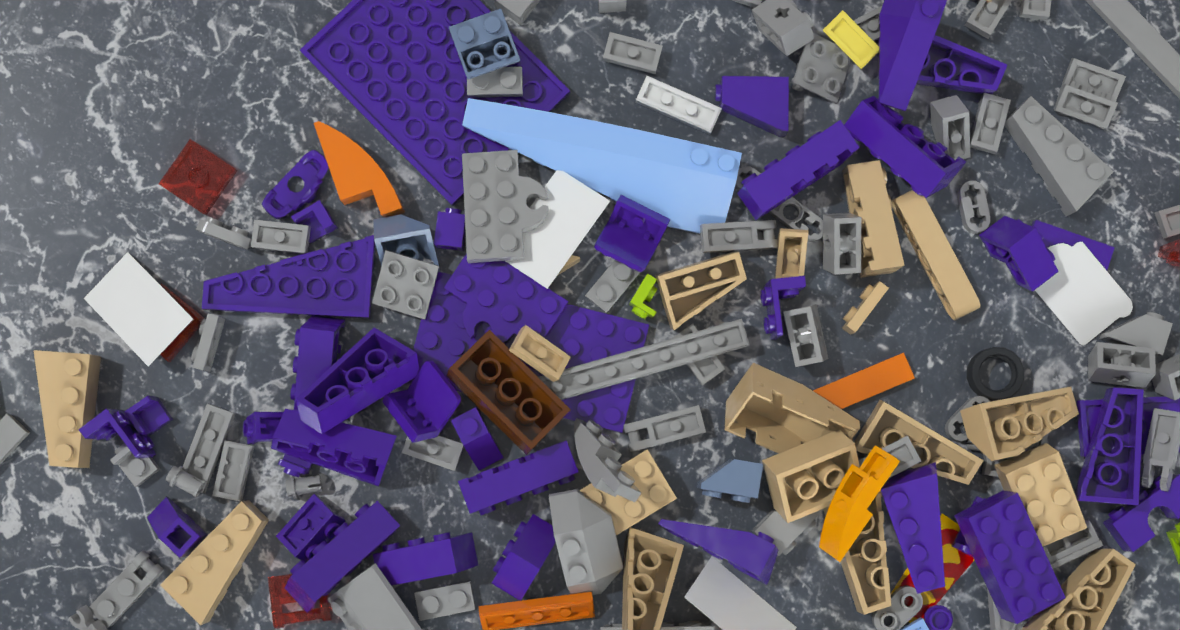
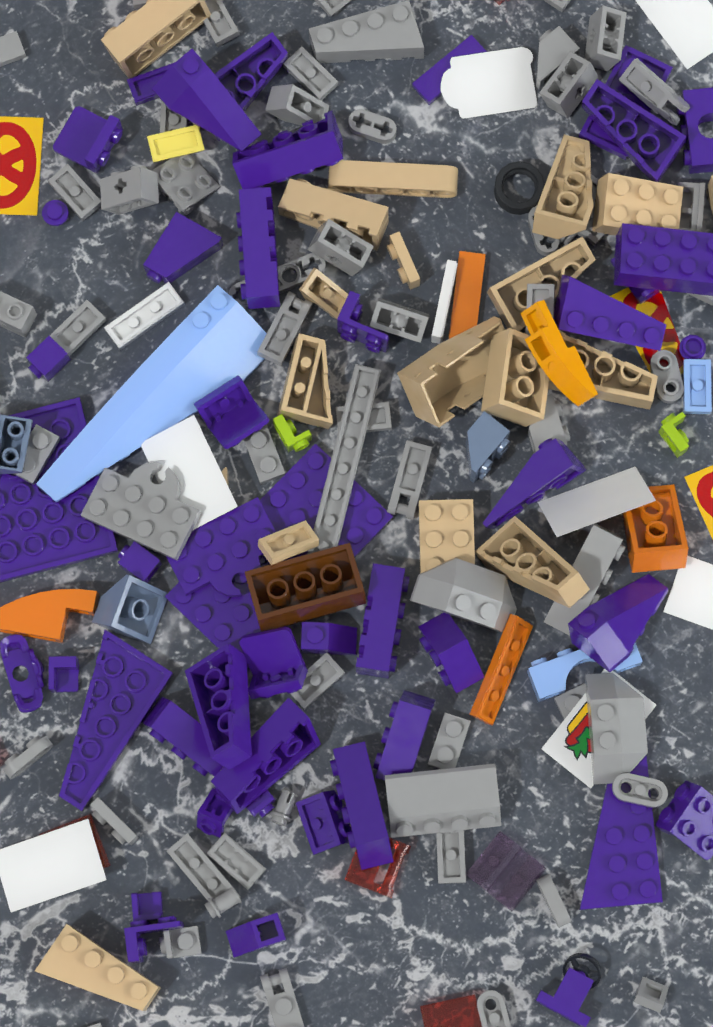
camera: 55 degrees left, 5 degrees down
(209, 570) = (308, 923): tan wedge -> none
(280, 236) = (59, 710): light grey plate -> none
(405, 284) = (163, 624): light grey hinge -> none
(588, 42) = (47, 359): none -> dark purple brick
(600, 461) = (406, 540): light grey slope -> none
(847, 366) = (444, 302): none -> white tile
(1021, 250) = (430, 109): dark purple brick -> none

